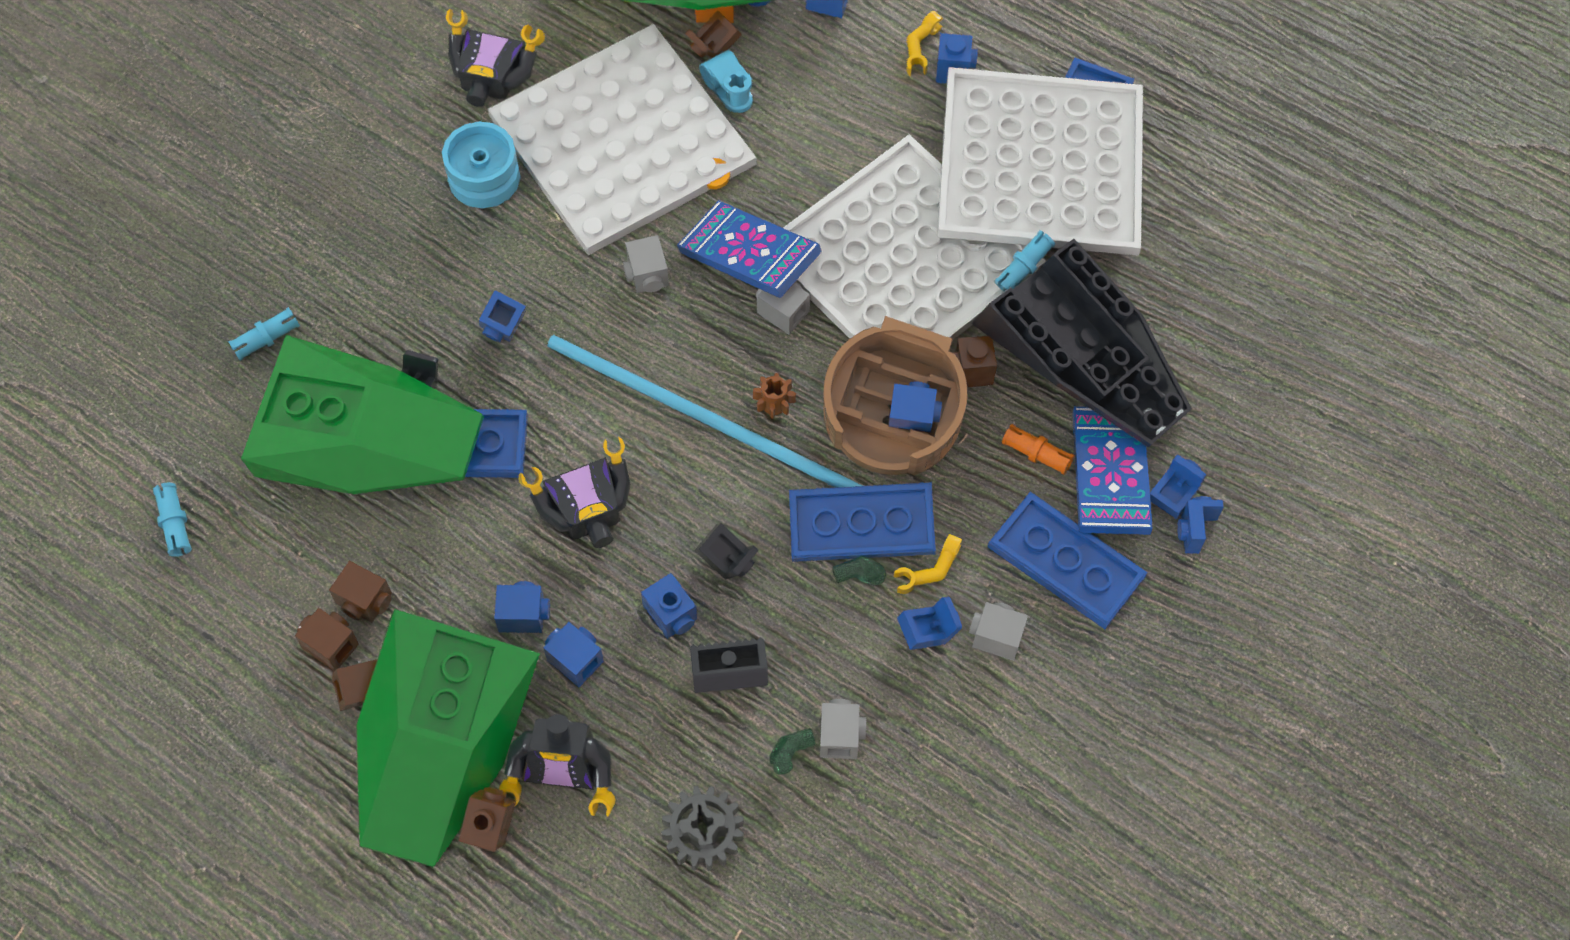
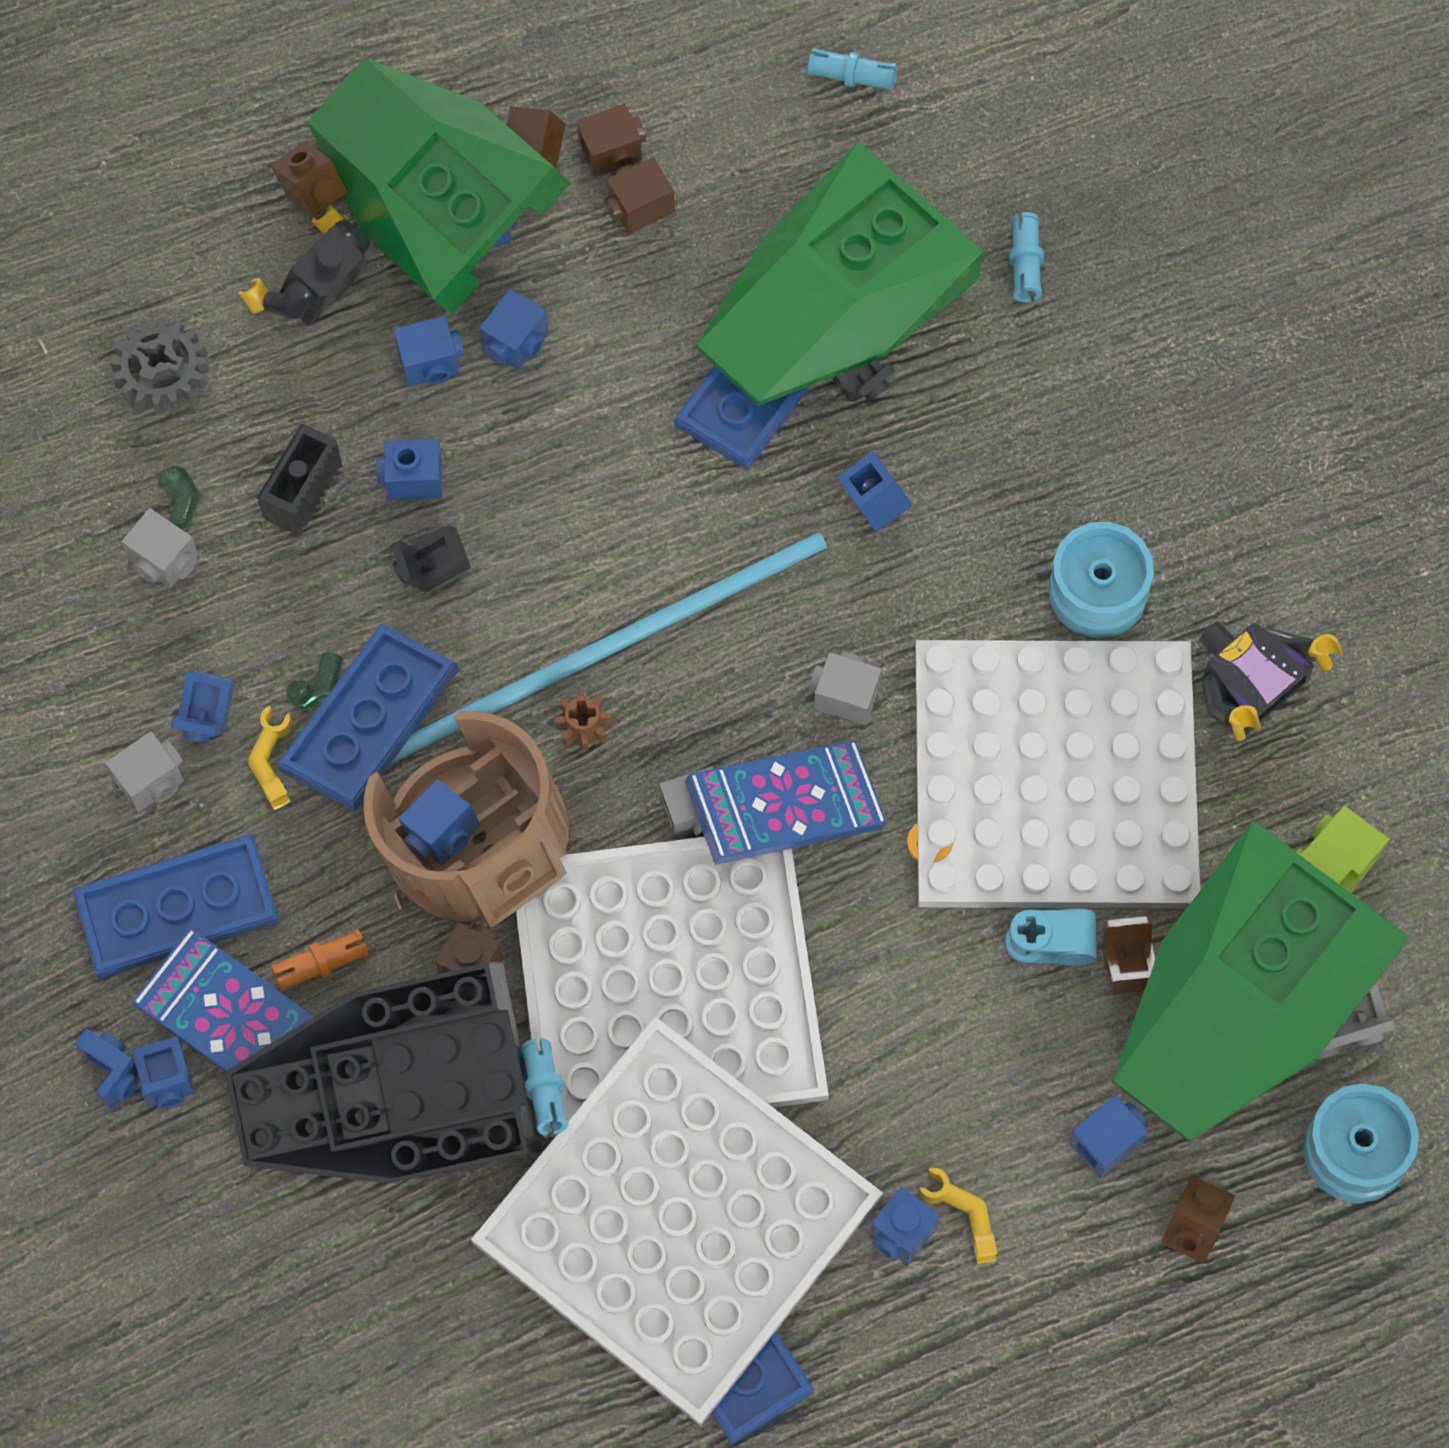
camera: 125 degrees right, 5 degrees up
(584, 498) = (594, 452): black torso -> none

